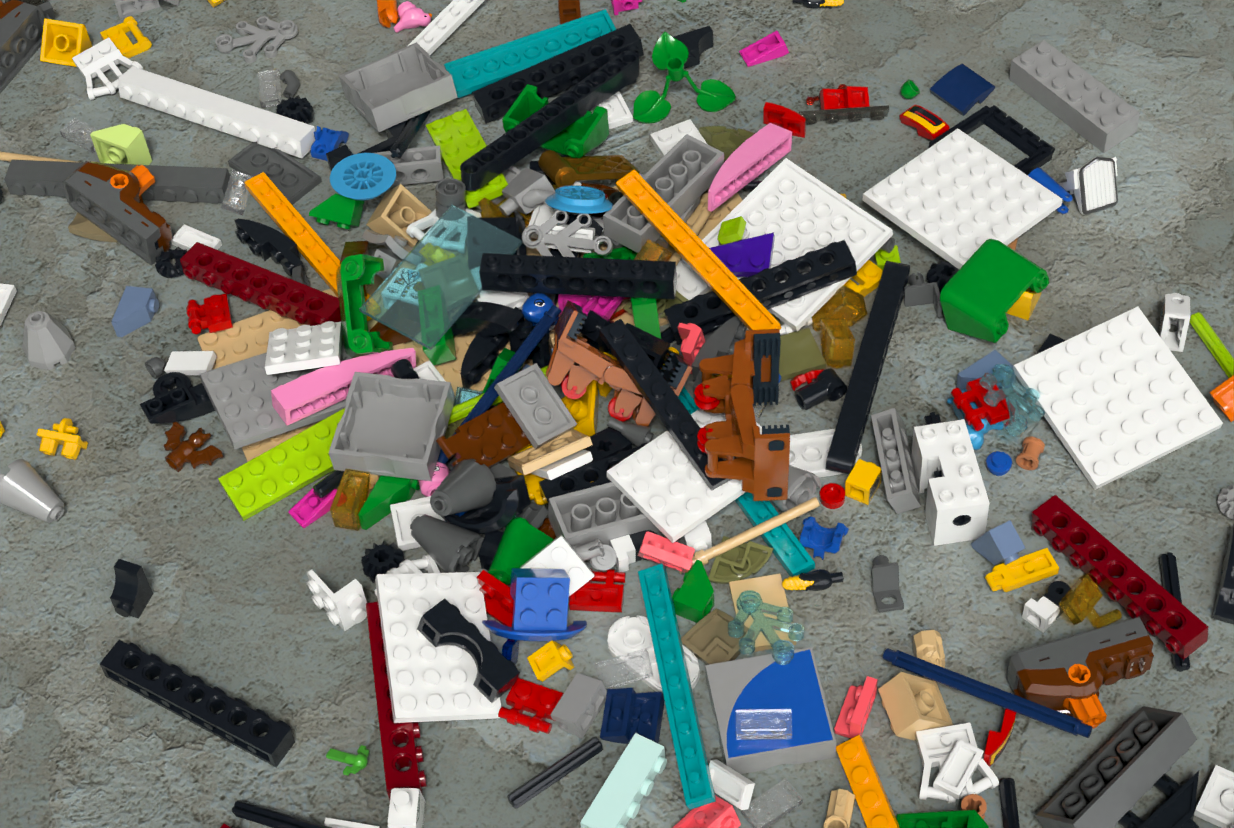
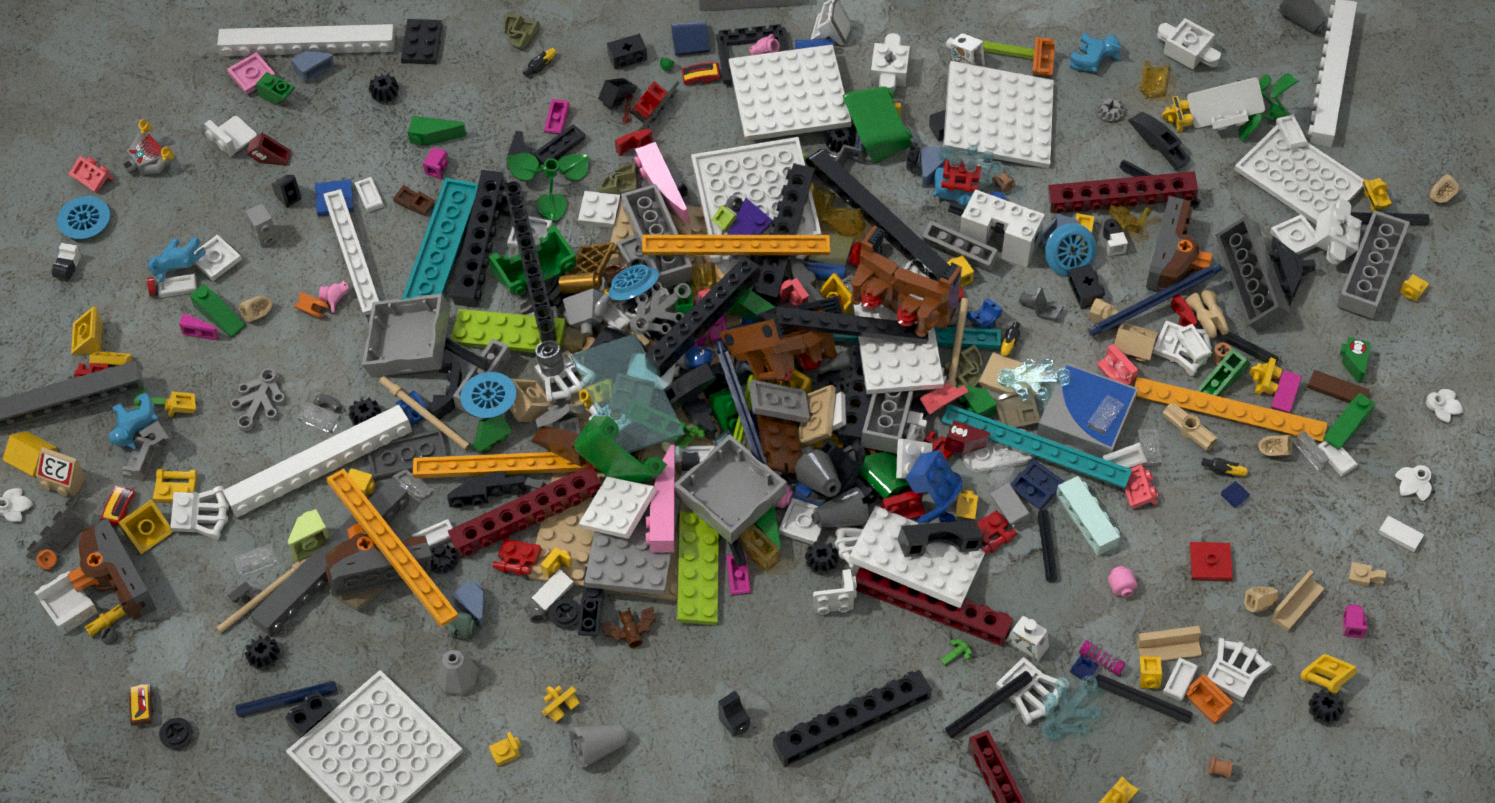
camera: 60 degrees left, 5 degrees up
(37, 142) = (239, 592): none -> dark grey tile
(79, 13) = (117, 504): none -> slope
(101, 314) = (462, 626): none -> sand green head
(123, 203) = (392, 548): none -> light orange plate
(211, 152) = (363, 481): none -> yellow brick
(218, 340) = (554, 560): none -> yellow bracket
(330, 118) = (397, 391): none -> tan bar
(454, 365) = (692, 432): none -> bright green piece
(628, 605) = (965, 438): none -> dark red slope
(728, 70) = (560, 144): none -> black plate
(754, 227) = (734, 199): none -> dark grey hinge
(833, 70) = (615, 91): none -> black arch
(893, 51) = (627, 51): none -> black brick
(951, 613) = (1085, 285): none -> black brick
(984, 345) = (913, 156): none -> black gear
(1008, 566) = (1058, 236): none -> dark azure piece
(1010, 150) = (765, 45): none -> bright pink animal
(1012, 770) = (1211, 319): none -> tan piece
(1090, 264) = (890, 63): none -> white brick

